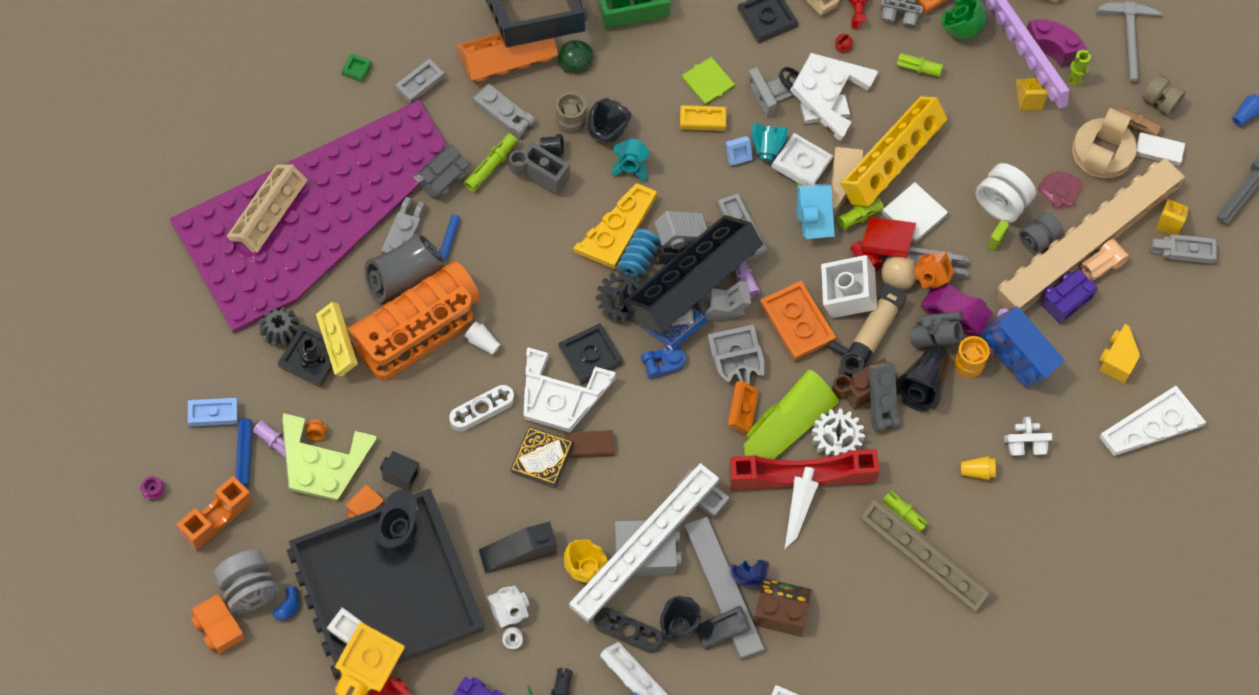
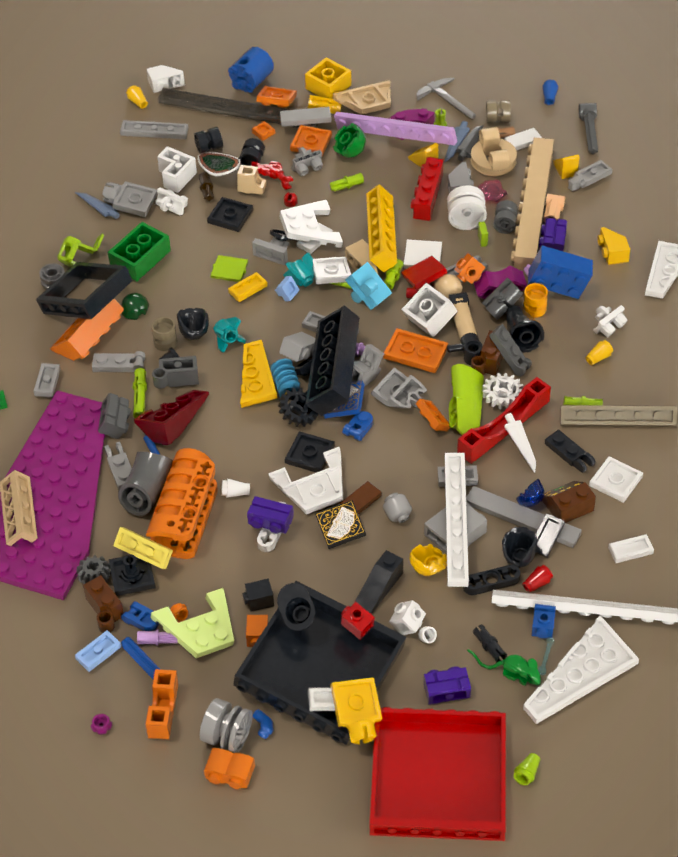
camera: 35 degrees left, 15 degrees down
(258, 367) = (104, 603): none -> reddish brown hinge
(276, 411) = (143, 620): none -> blue plate
(447, 575) = (357, 620): none -> red brick
(481, 396) = (270, 515): none -> dark purple brick
(488, 215) = (172, 418): none -> dark red wedge
(611, 482) = (397, 507): none -> light grey head
(669, 665) = (538, 578): none -> red cone
(840, 551) = (569, 451): none -> black hinge
(855, 621) = (616, 479): none -> white tile
(993, 137) = (428, 189): none -> red brick
(1034, 153) = (459, 177): none -> light grey slope
(1090, 95) = (461, 132): none -> sand blue bar
(1097, 110) = (466, 146): none -> dark grey bar

